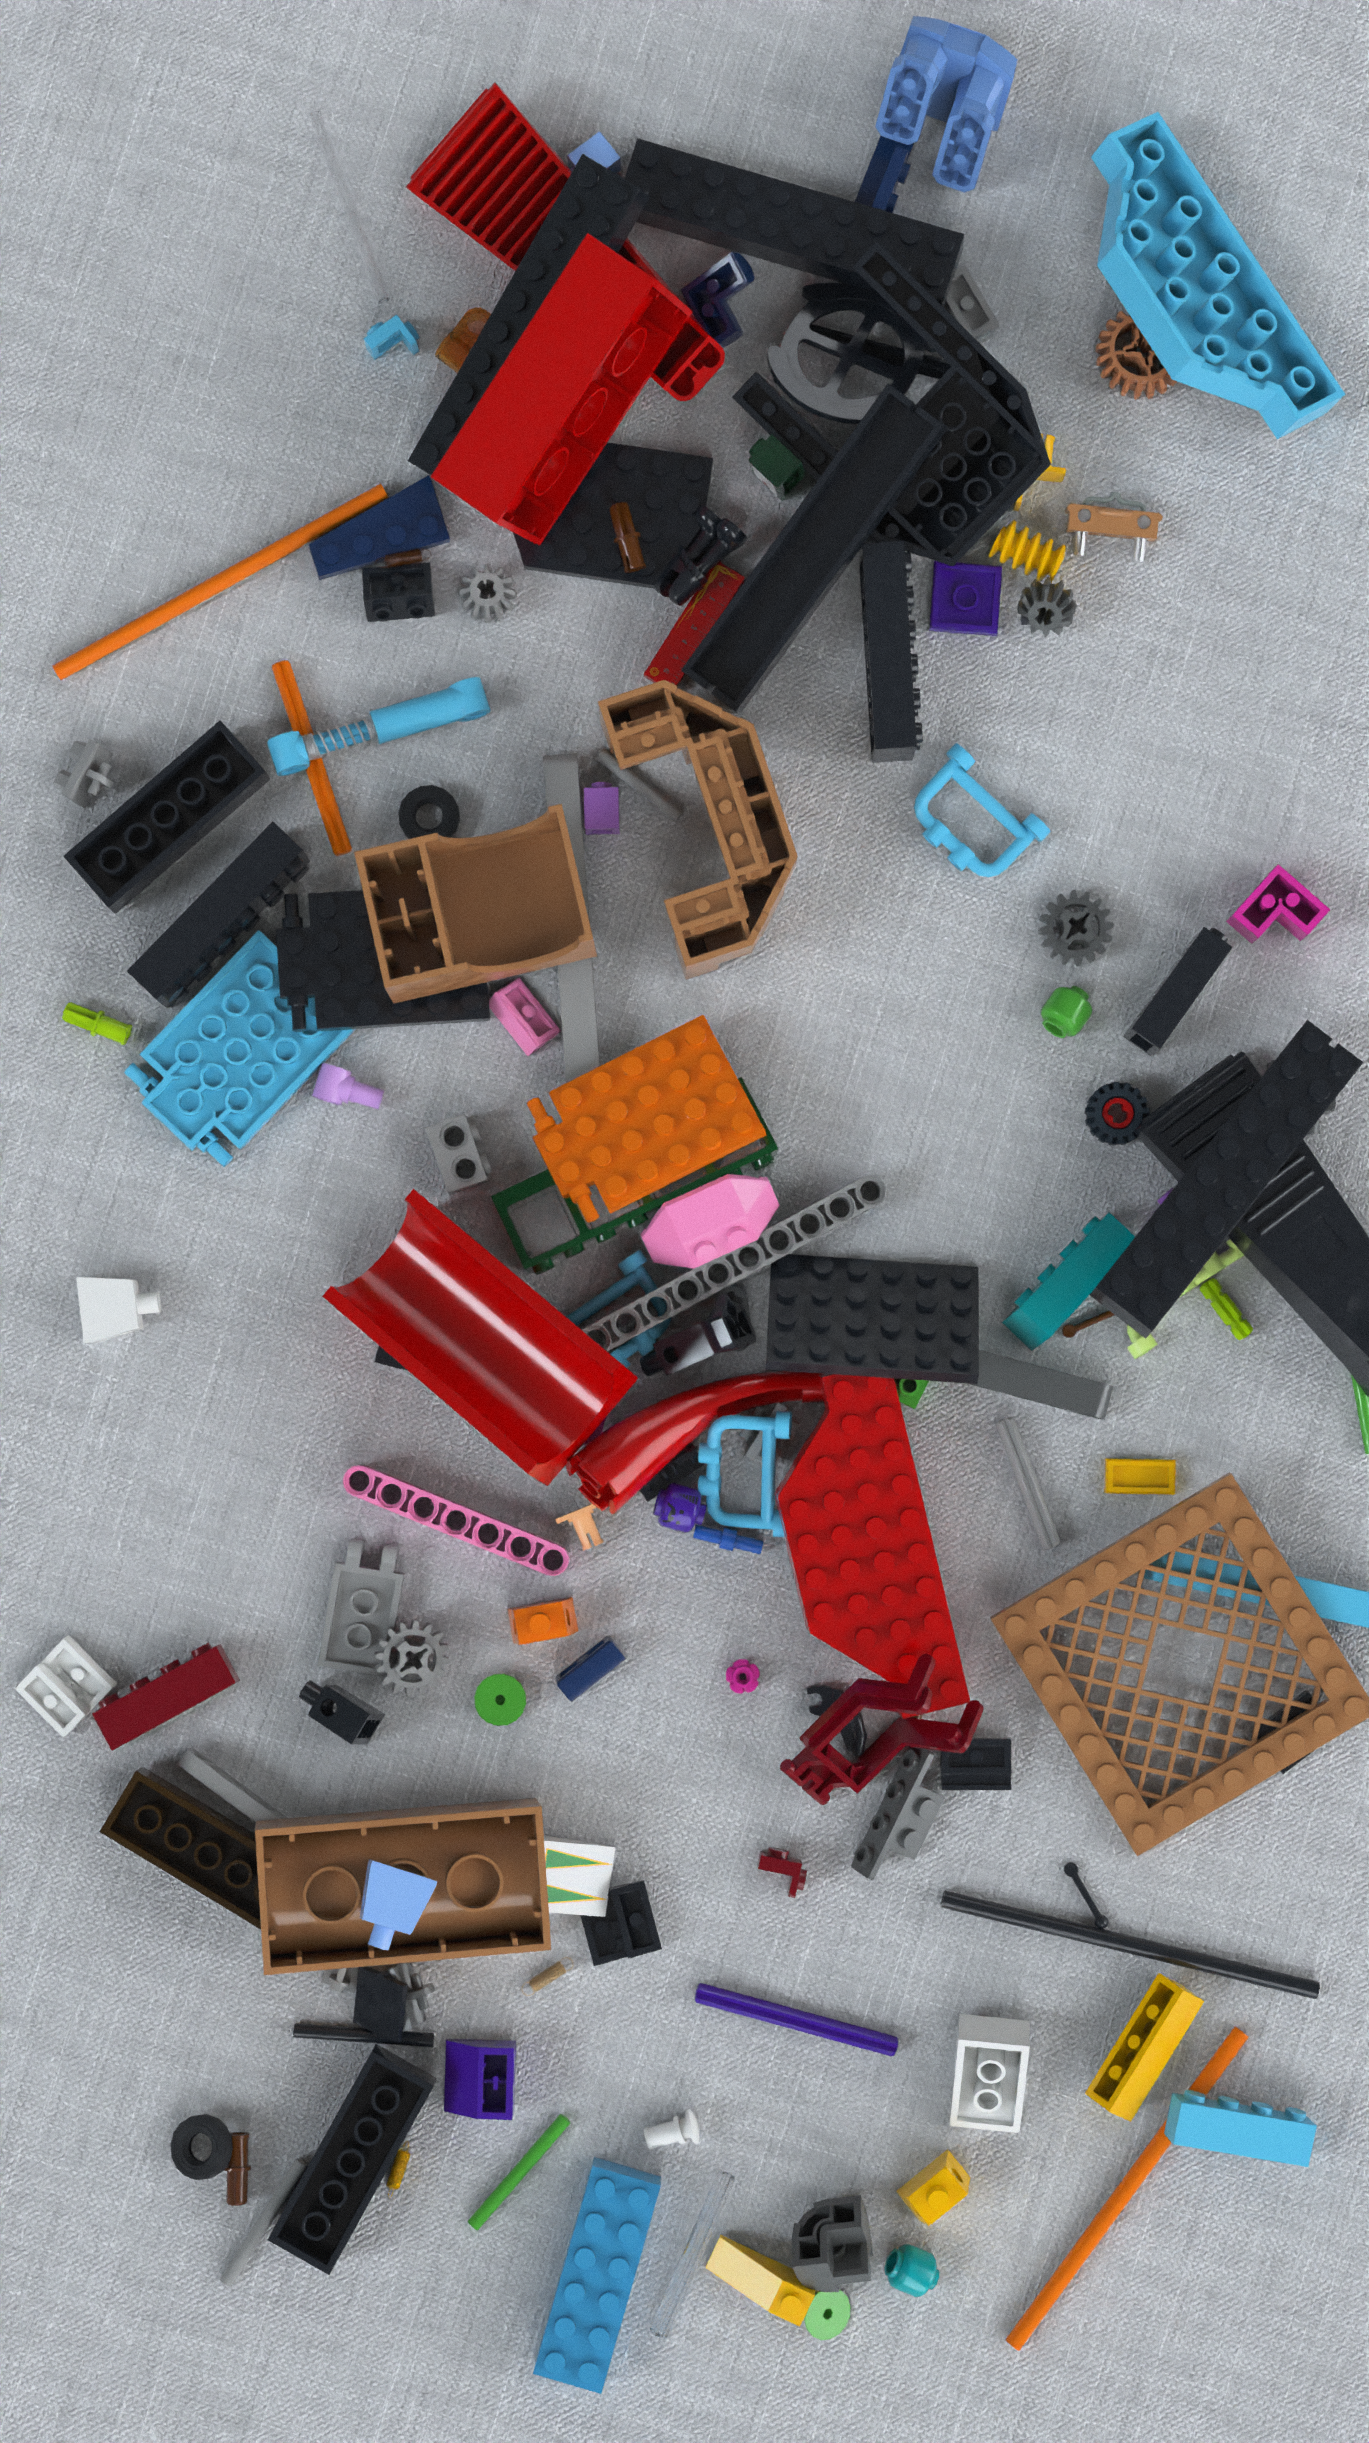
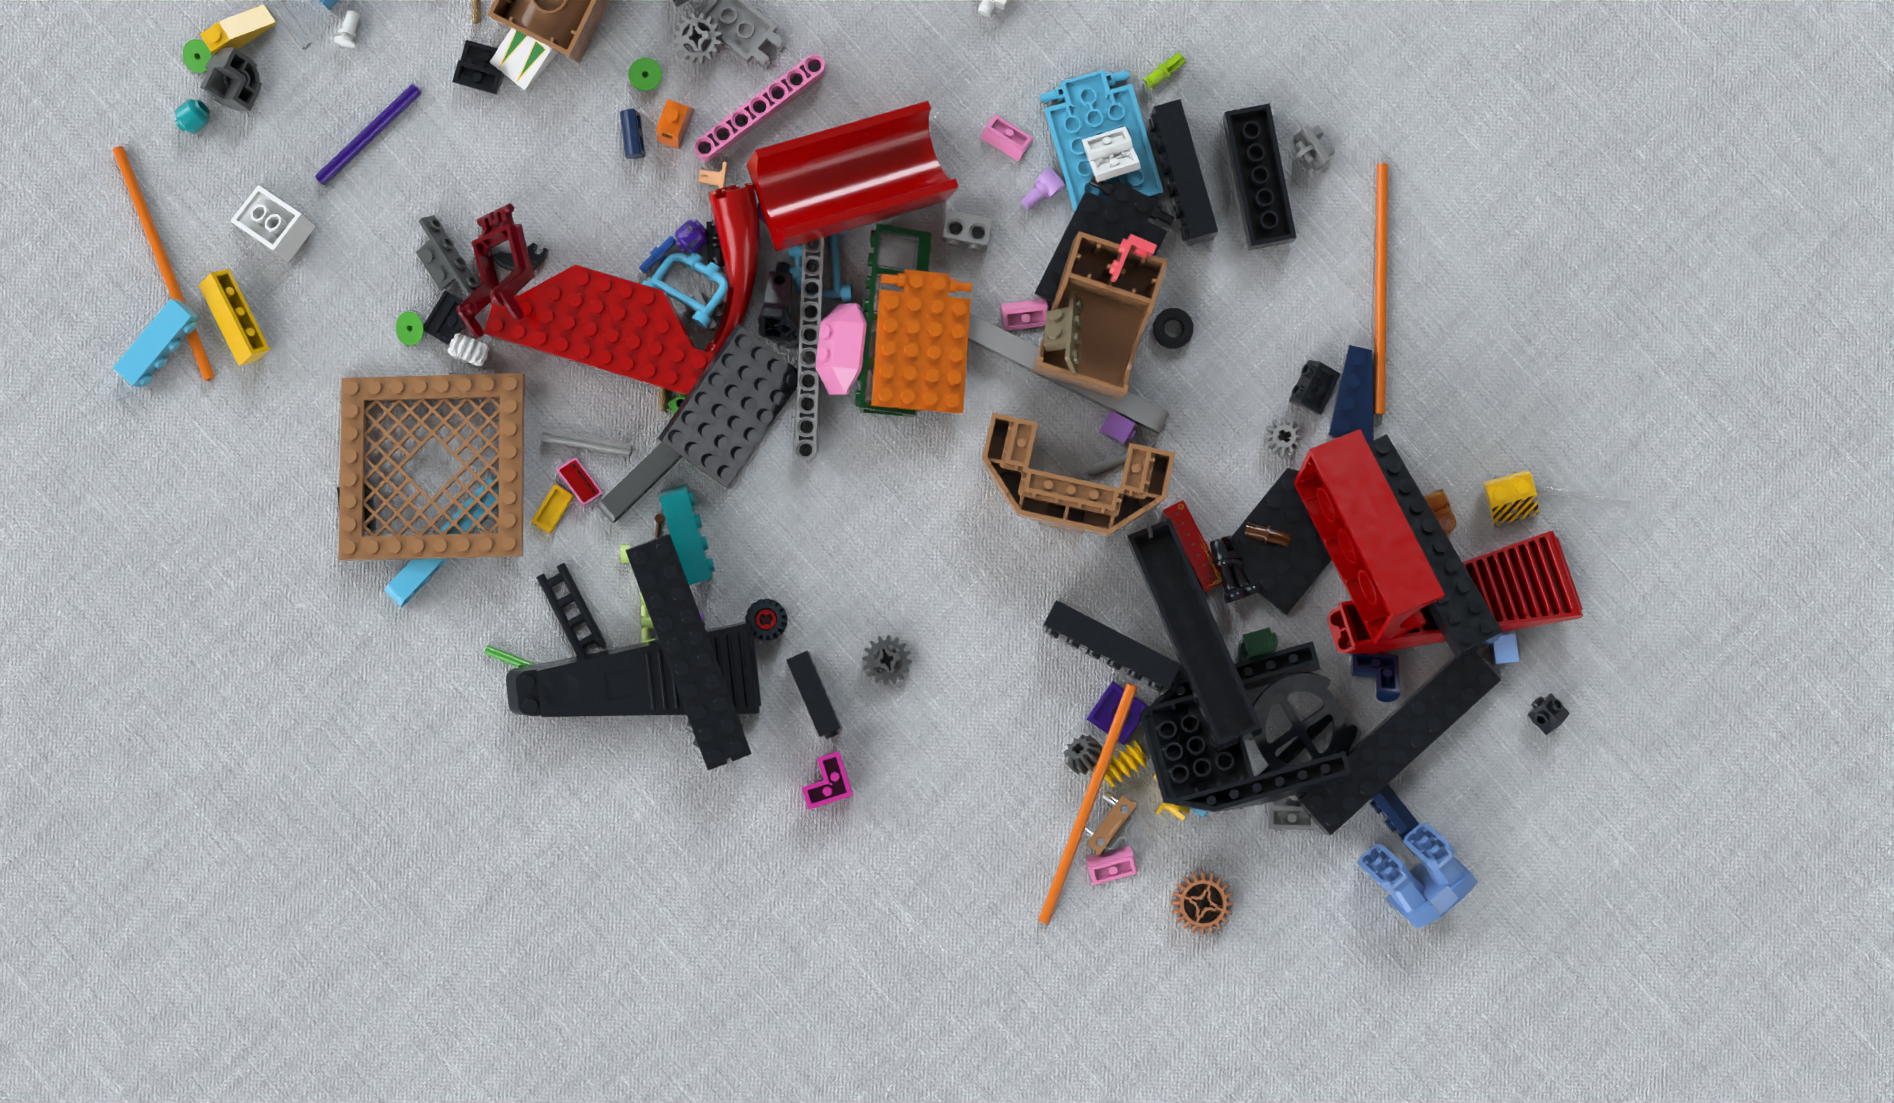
camera: 120 degrees right, 0 degrees up
(250, 1023) = (1111, 154): none -> white slope
(305, 1176) = (1006, 137): none -> bright pink slope
(316, 771) = (1246, 281): orange axle -> none
(361, 891) = (1141, 248): none -> coral bracket
(386, 335) = (1471, 465): medium azure bracket -> none
(393, 262) = (1511, 497): none -> yellow slope
(403, 558) = (1331, 403): reddish brown piece -> none
(458, 702) = (1240, 331): medium azure piece -> none
(526, 936) = (1063, 330): none -> dark tan bracket
(643, 60) = (1548, 713): none -> black brick
(752, 1674) = (576, 223): dark pink plate -> none
(777, 1861) = (459, 176): dark red bracket -> none
(917, 1416) = (662, 403): none -> tan piece
(936, 2188) = (228, 153): yellow torso -> none
(960, 854) = (989, 614): medium azure bar -> none
(1002, 1709) = (468, 349): none -> white gear
(1018, 1806) = (409, 328): none -> bright green piece
(1066, 1011) = (842, 625): bright green head -> none
(1071, 1870) = (356, 337): black hinge -> none
(1084, 1462) = (579, 481): none -> red slope
(1105, 563) = (1088, 803): none -> orange piece
(1130, 1944) = (294, 346): black piece -> none
(1162, 494) = (1111, 865): none -> bright pink slope
(1200, 286) = (1220, 956): medium azure brick -> none
(1226, 1309) = (617, 615): lime axle -> none
(1234, 1377) = (558, 604): none -> black bar

